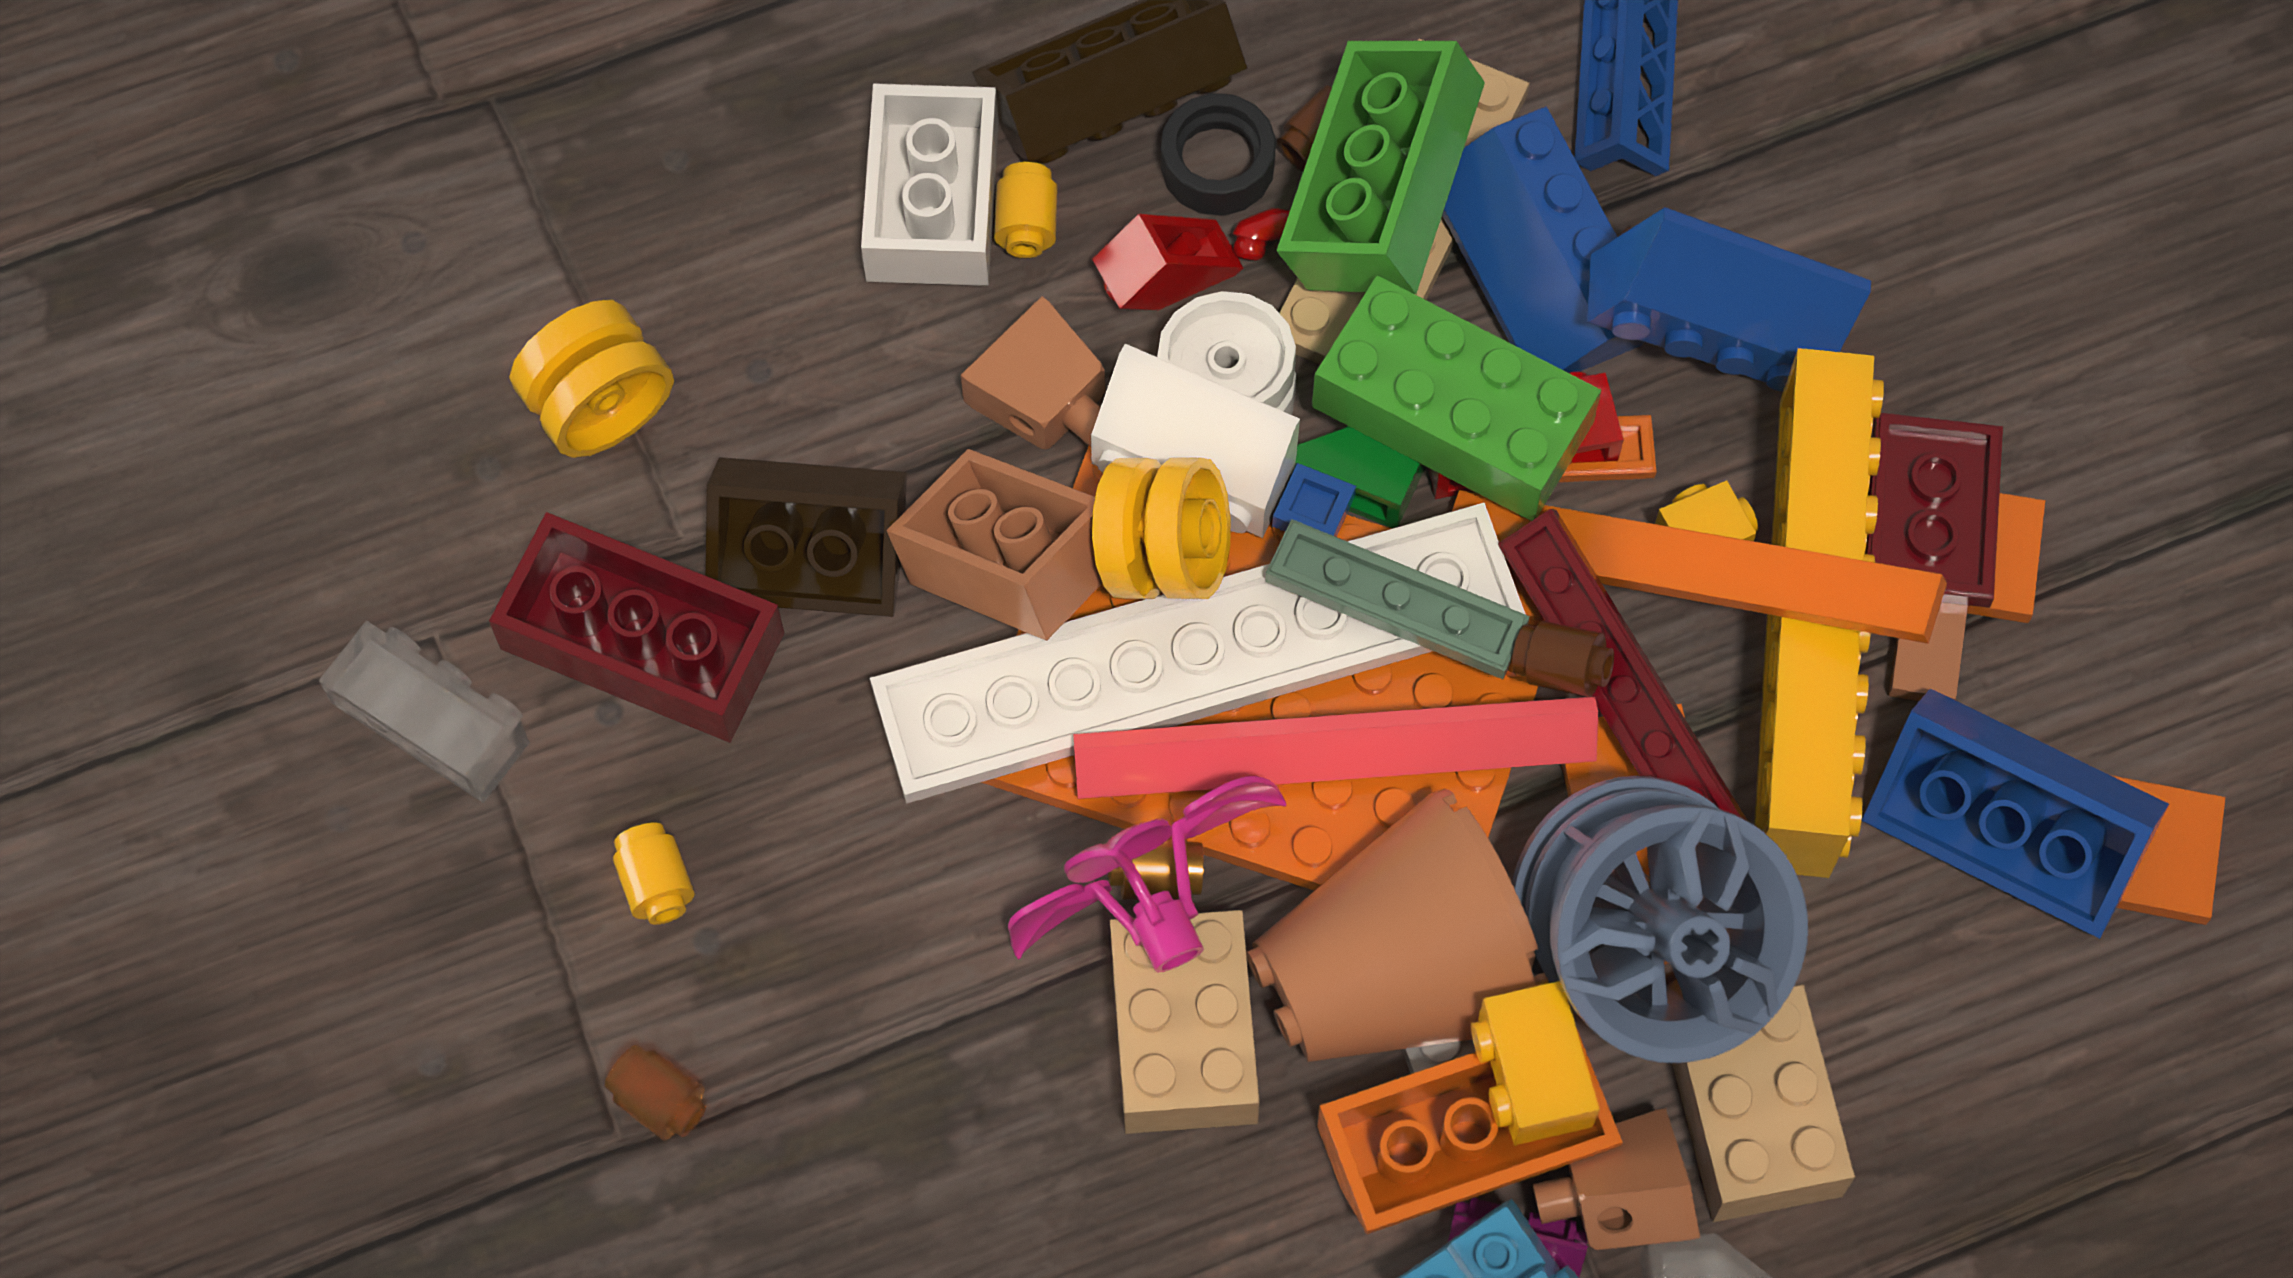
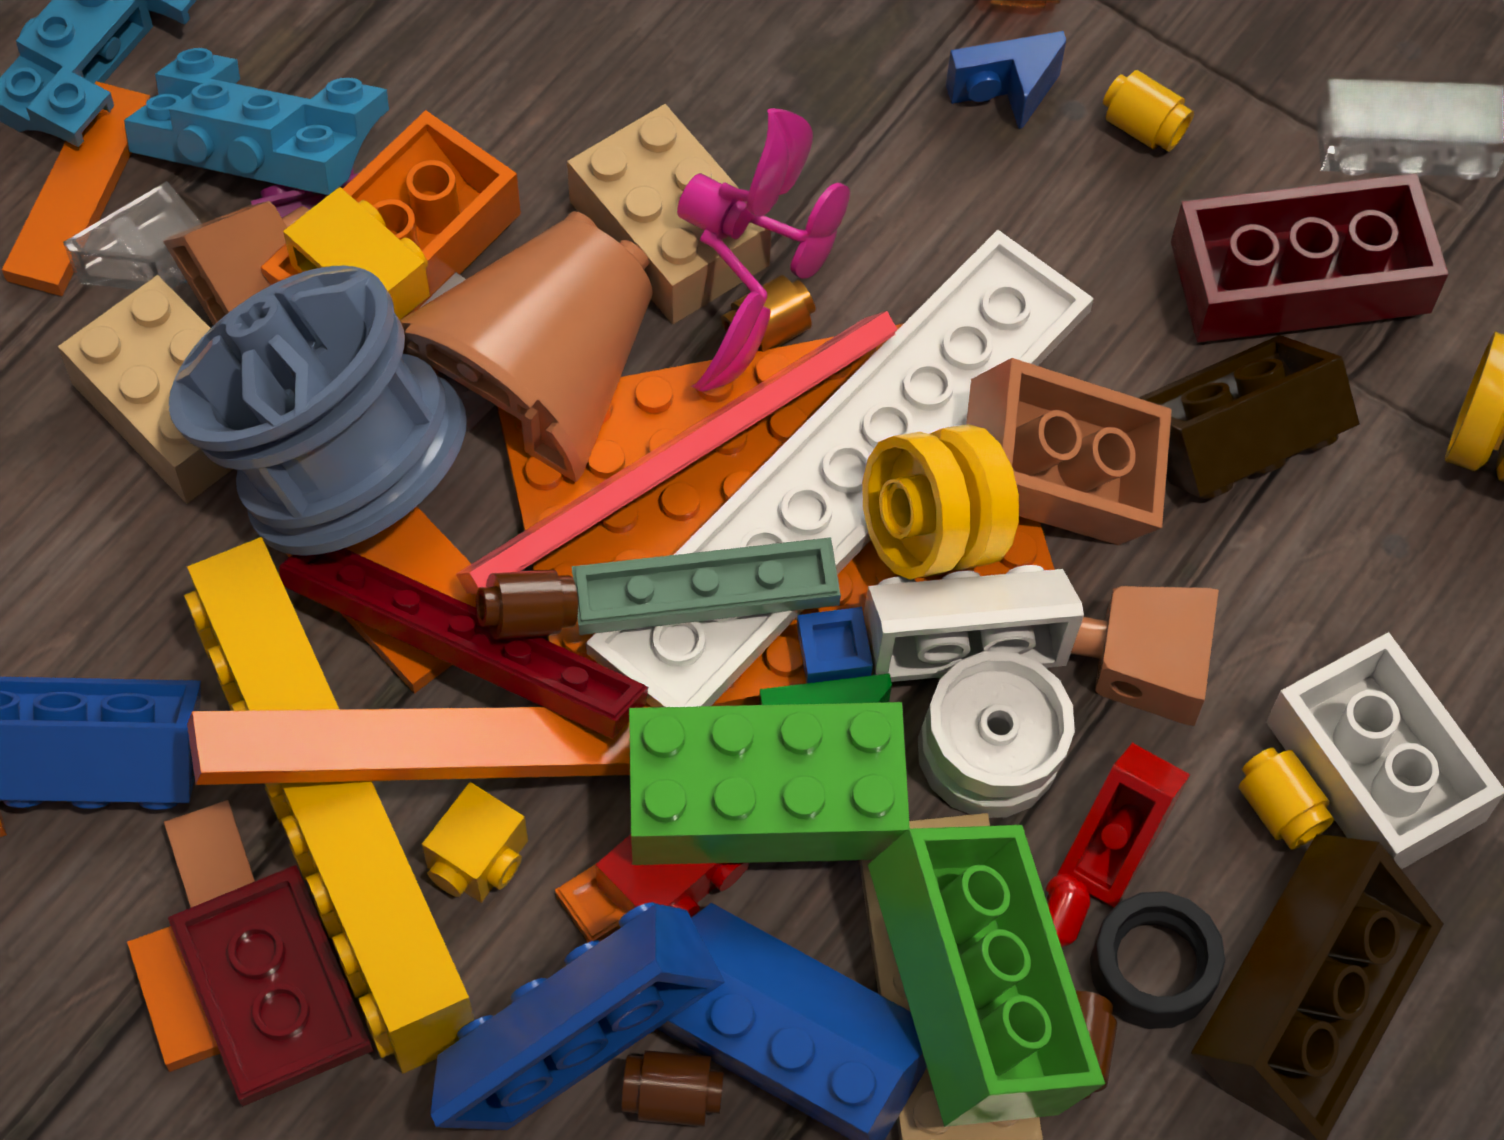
camera: 145 degrees right, 5 degrees down
(735, 985) = (1014, 67): none -> blue slope

